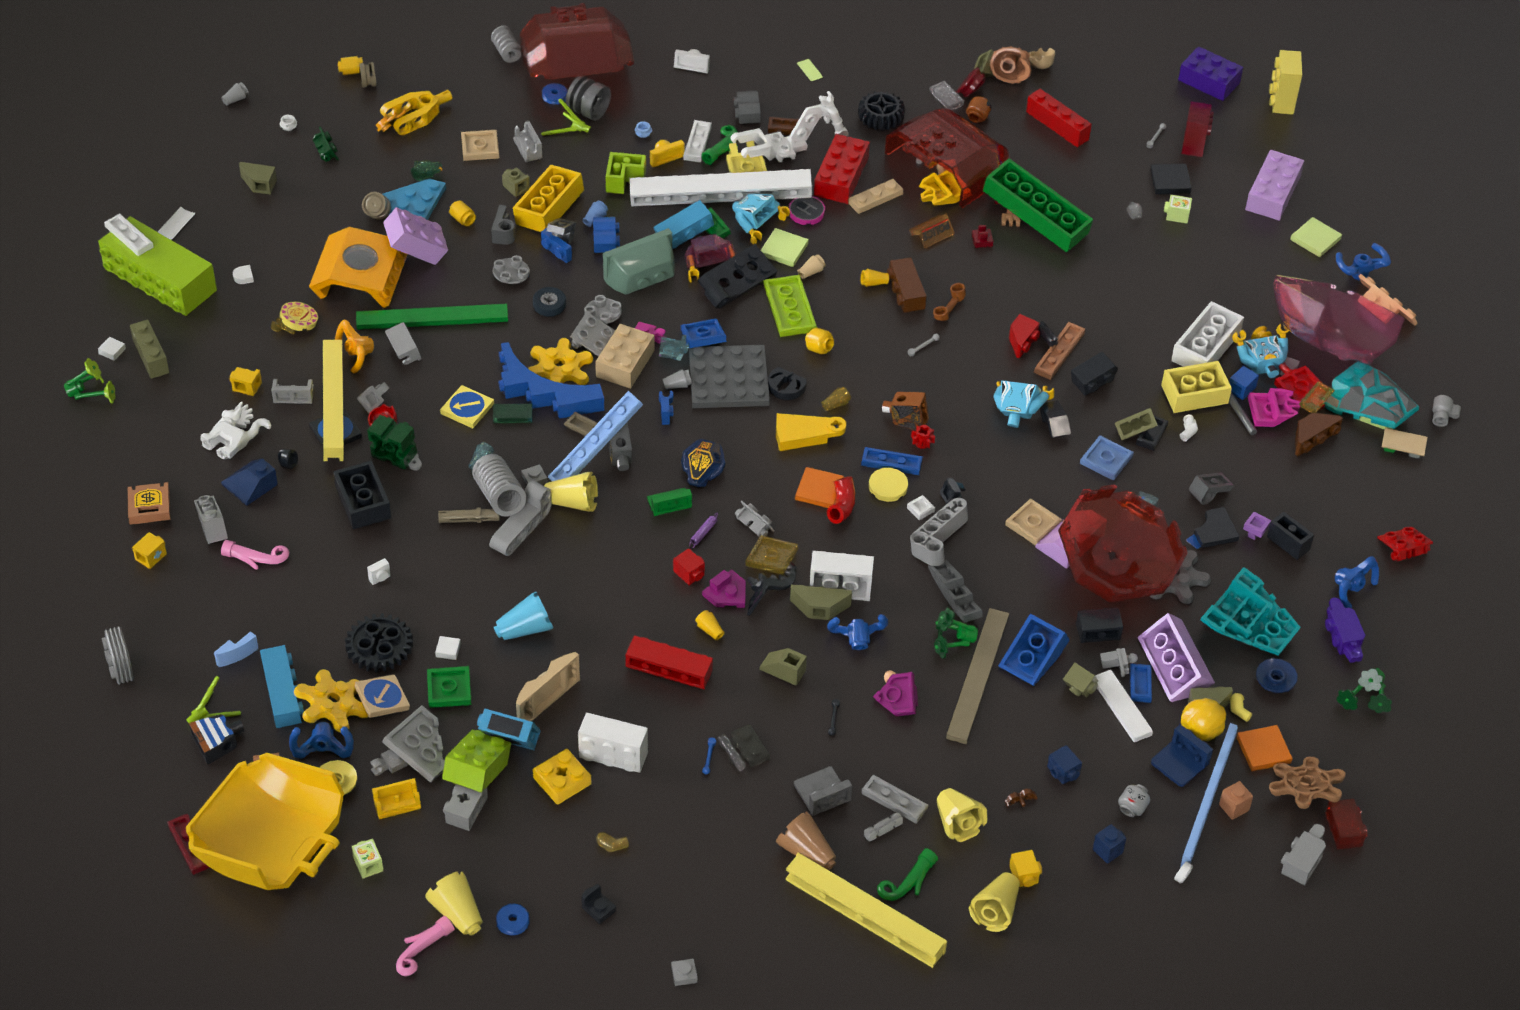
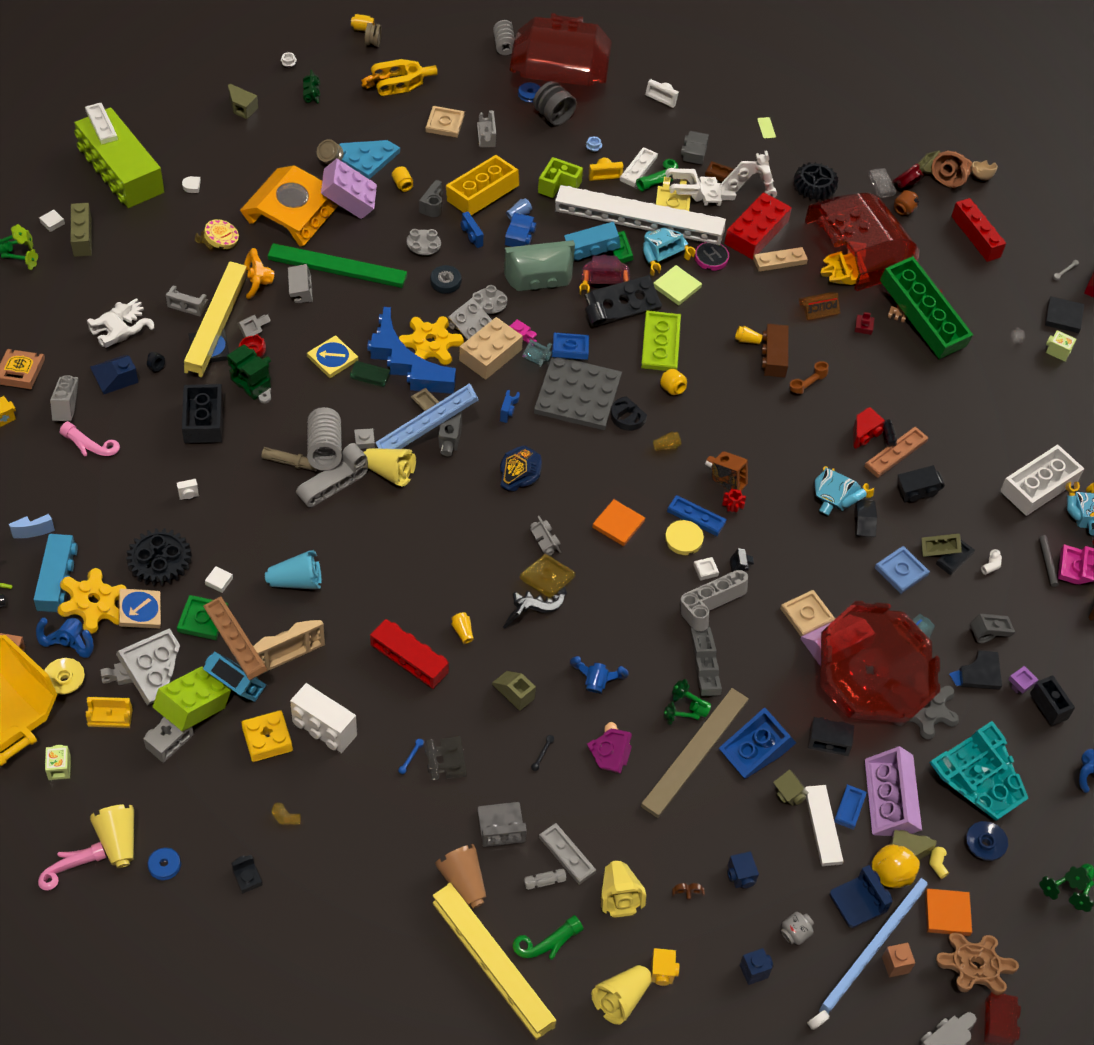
camera: 15 degrees right, 5 degrees up
(176, 223) = (154, 125): white sticker -> none
(235, 94) = (254, 23): light grey cone -> none
(245, 381) = (150, 280): yellow brick -> none
(425, 169) = (387, 130): clear green animal -> none
(481, 450) = (326, 401): clear light blue cone -> none
(496, 692) = (235, 638): none -> medium nougat tile
(512, 178) = (459, 158): olive brick -> none
(563, 229) = (482, 216): dark grey plate -> none
(576, 125) = (536, 125): lime plant -> none
(670, 501) = (476, 496): green panel -> none
(677, 380) = (530, 383): light grey cone -> none
(684, 972) = (298, 968): light grey plate -> none
(689, 566) = (467, 565): red brick -> none
(704, 529) = (495, 533): medium lavender piece -> none
(726, 589) = (493, 597): magenta plate -> none
(806, 431) = (627, 464): yellow piece -> none
(812, 266) = (695, 309): tan cone -> none
(820, 601) = (574, 634): olive slope -> none
(843, 572) = (601, 615): white brick -> none
(844, 500) = (635, 543): red cylinder -> none
(911, 352) = (756, 415): light grey hinge -> none
(1118, 658) = (836, 776): light grey piece -> none
(1196, 386) = (1013, 524): light yellow brick -> none
(1243, 382) = (1061, 532): blue brick -> none
(1345, 630) = (1073, 814): dark purple hinge -> none

